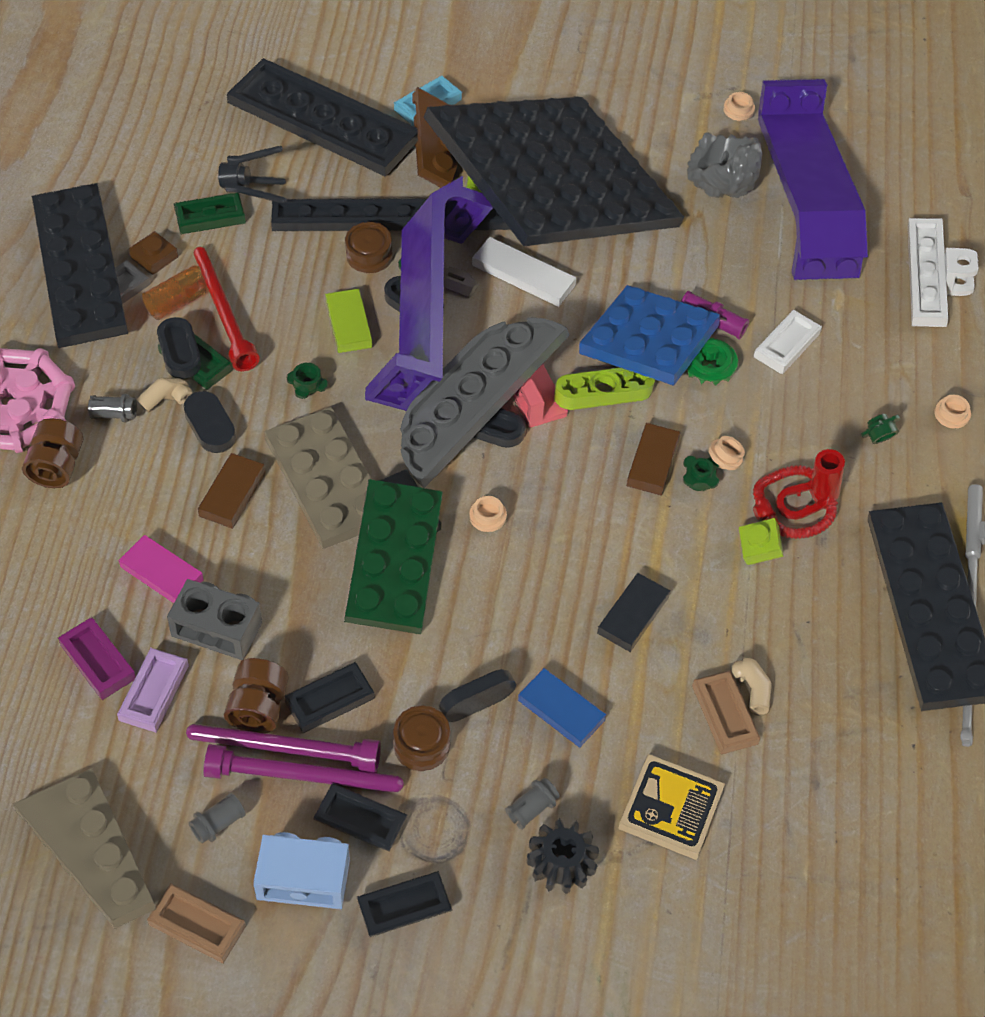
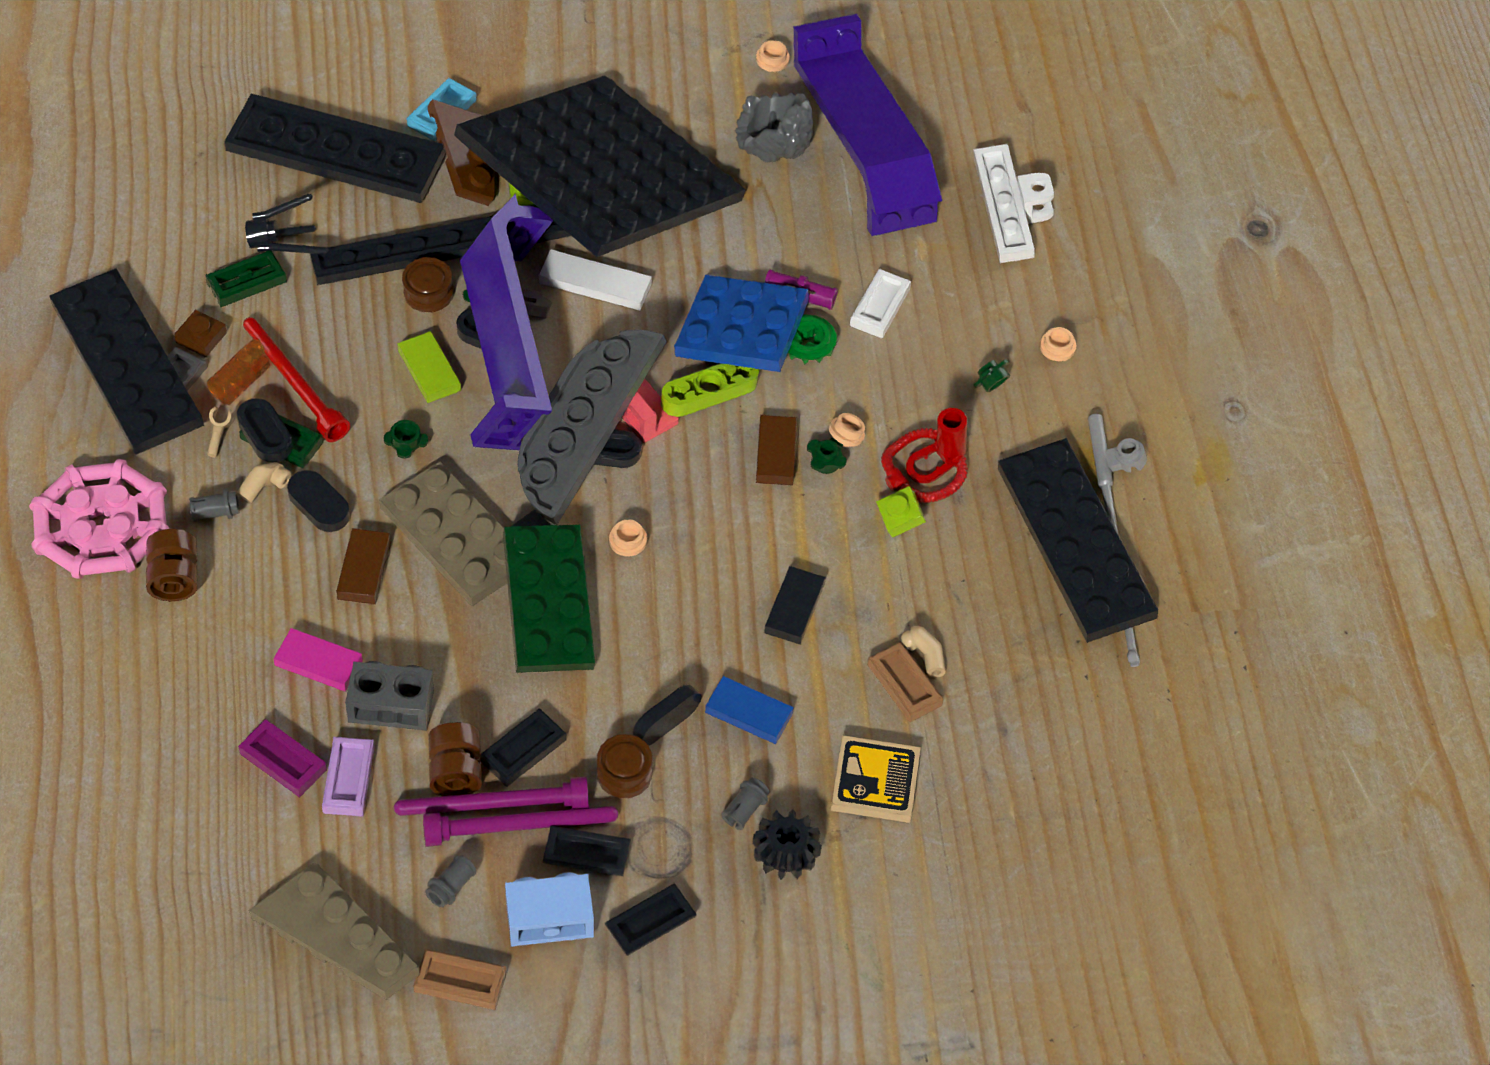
camera: 15 degrees left, 0 degrees up
(140, 339) = (217, 430): none -> tan hand

